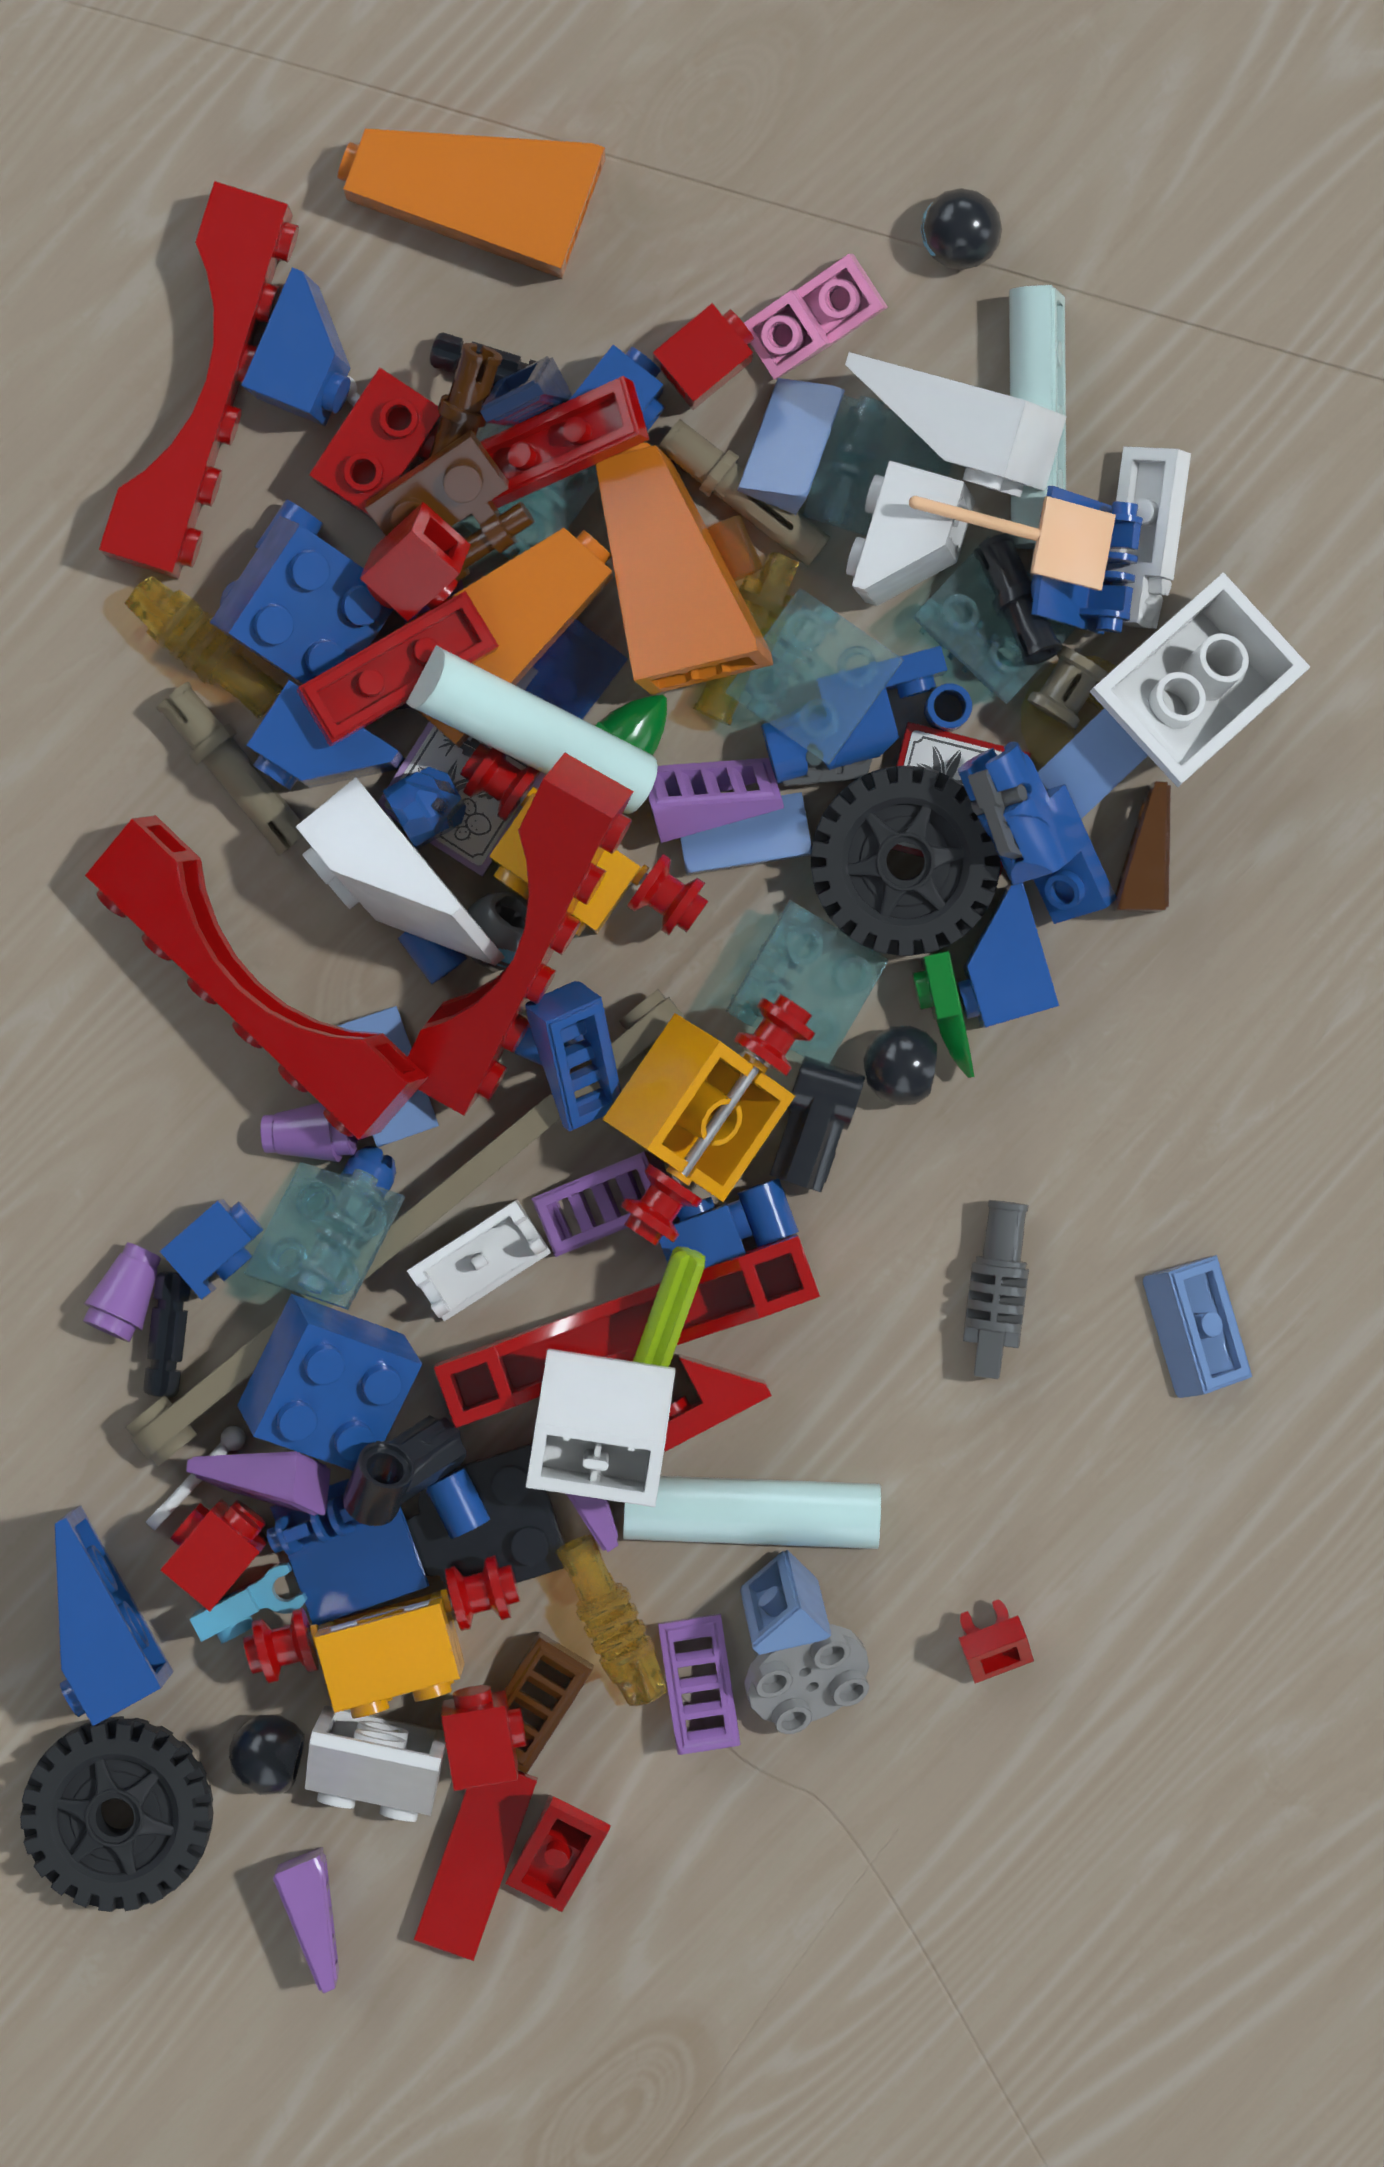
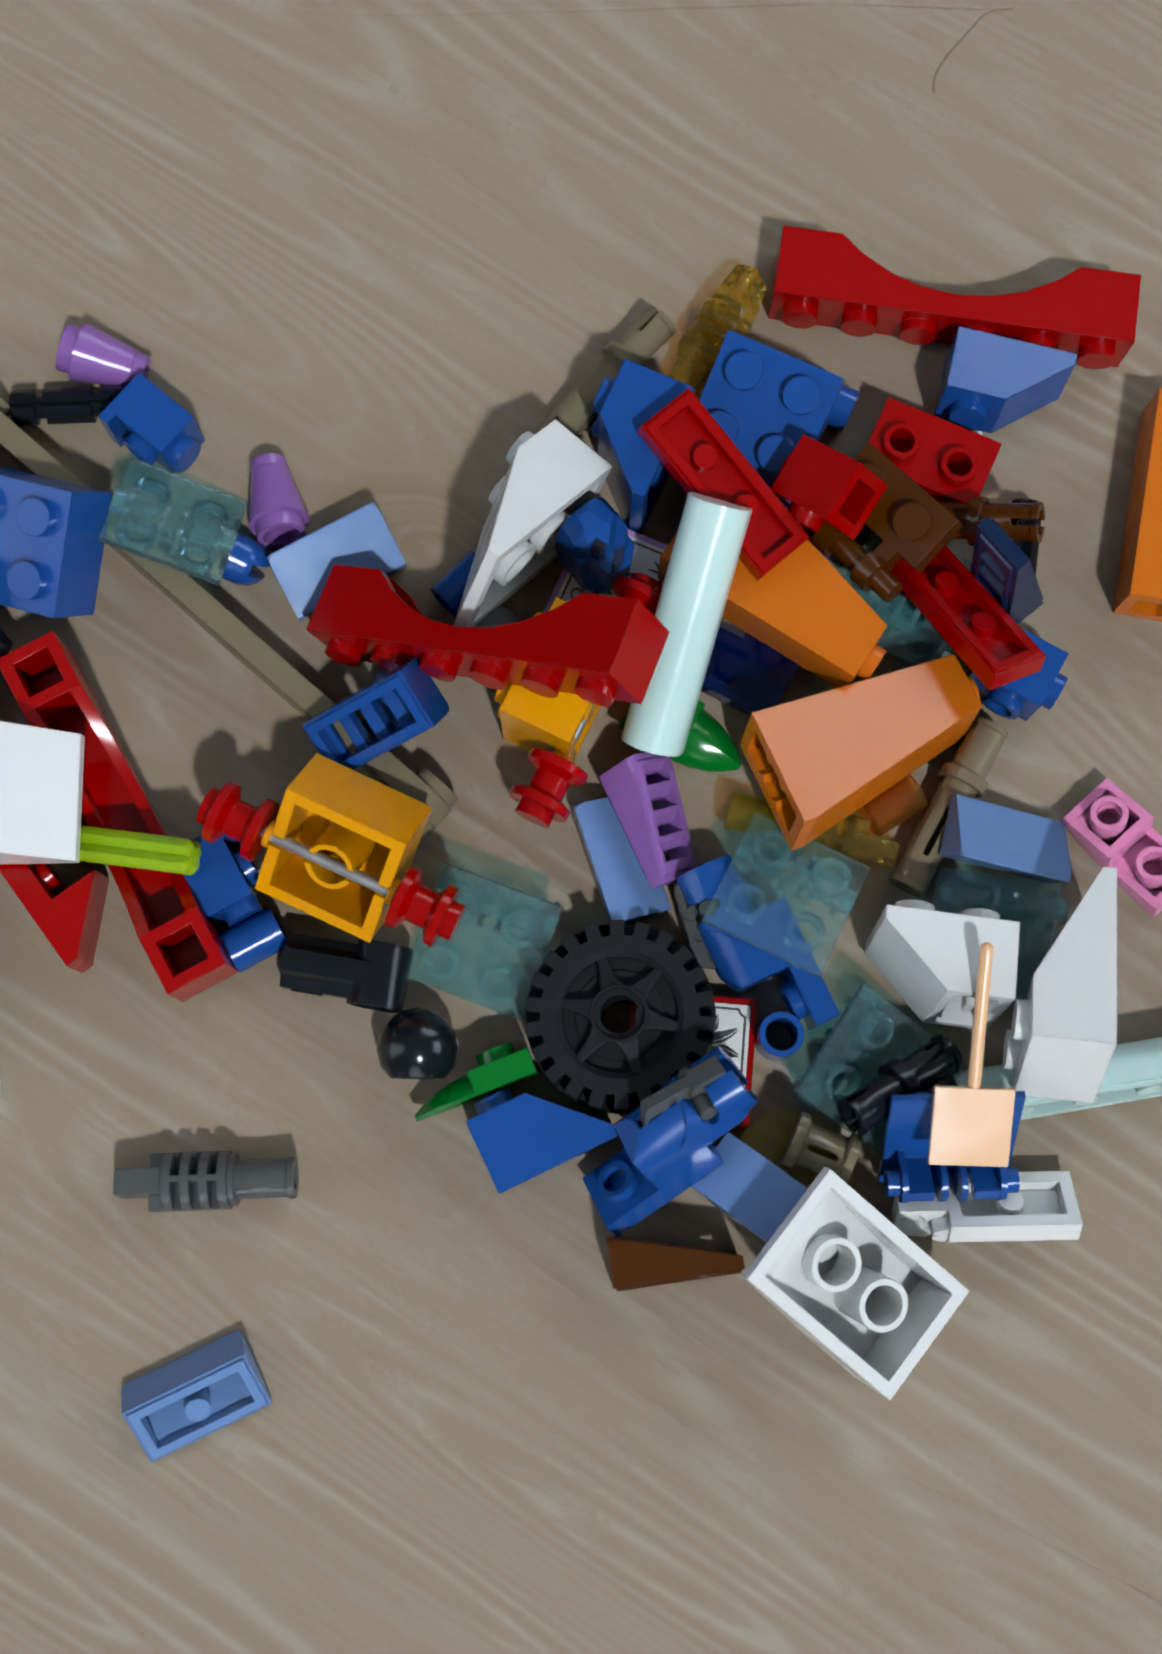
camera: 85 degrees right, 10 degrees down
(164, 893) = (478, 331): red arch -> none
(479, 1260) = (172, 672): white hinge -> none
(554, 1219) = (221, 741): medium lavender slope -> none
(705, 354) = (1075, 744): red brick -> none

